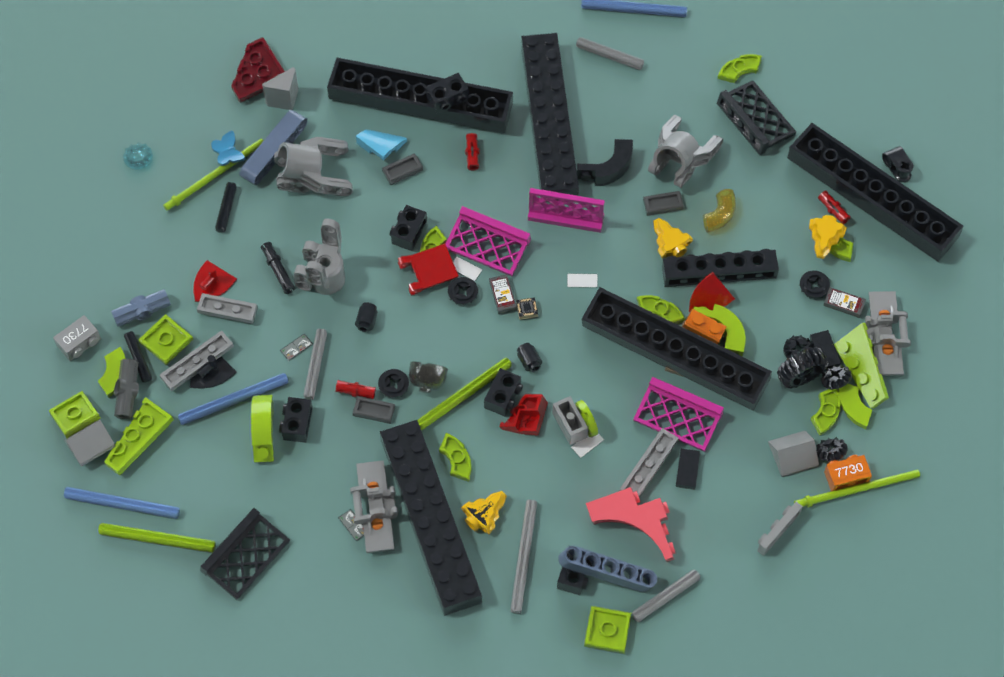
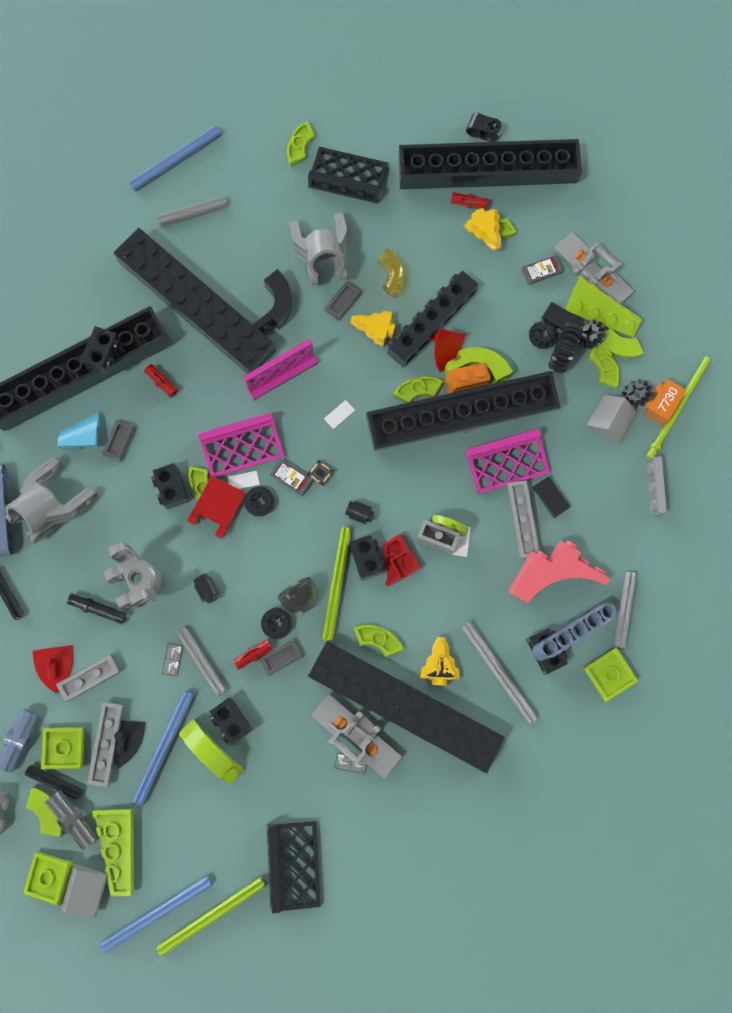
camera: 45 degrees left, 15 degrees up
(810, 278) = (514, 268): black gear -> none

